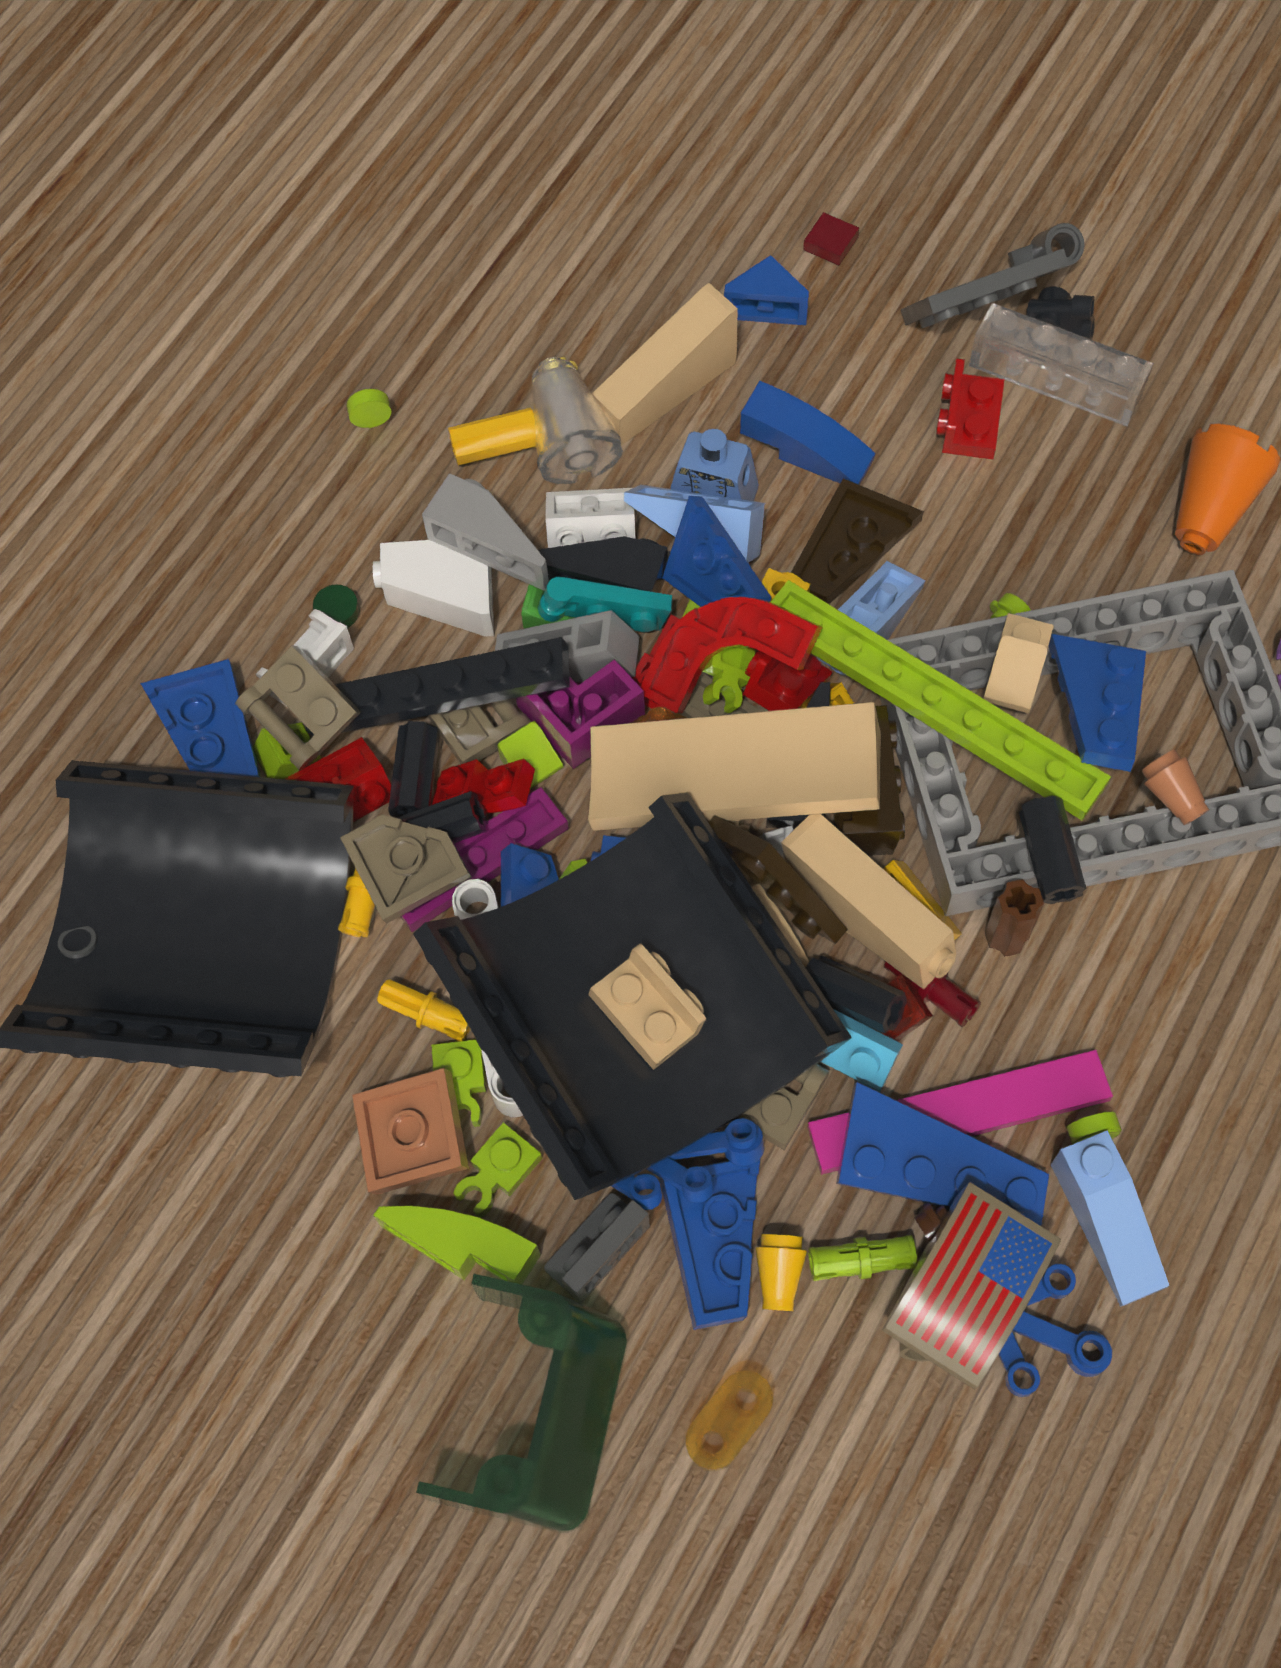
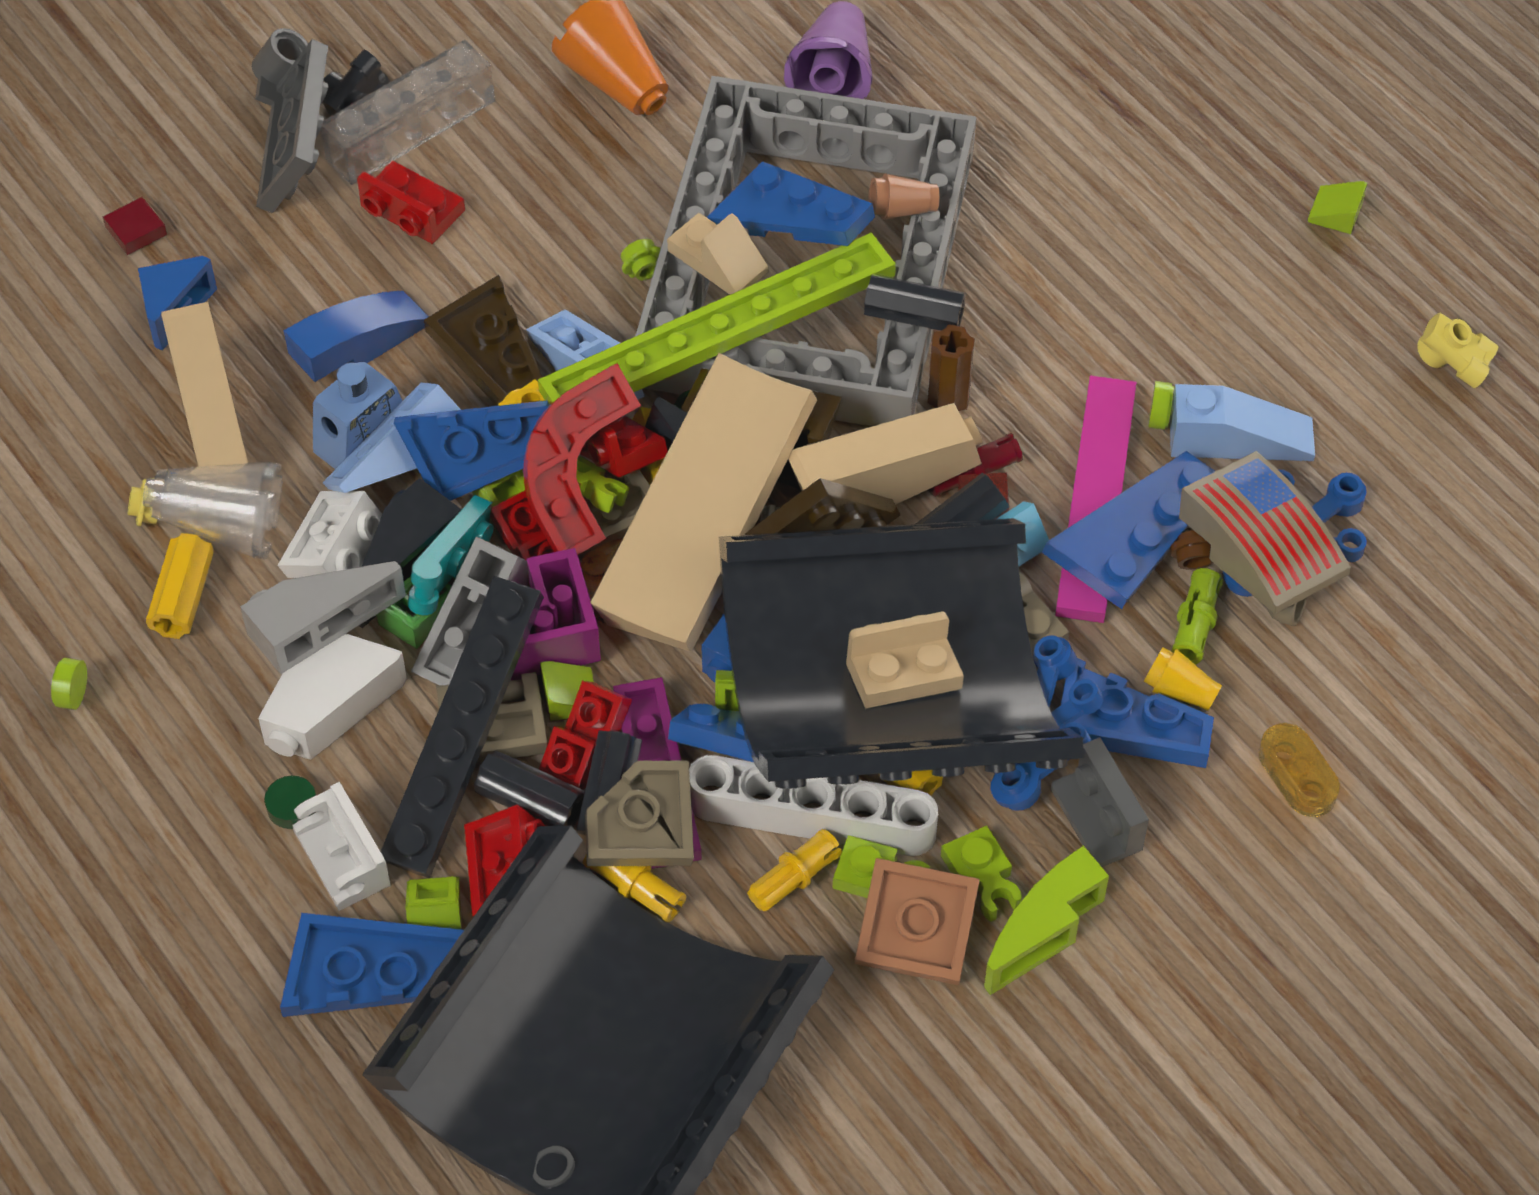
camera: 70 degrees left, 10 degrees down
(308, 696) = (407, 838): dark tan plate -> none
(562, 1467) = (1300, 923): clear green windscreen -> none

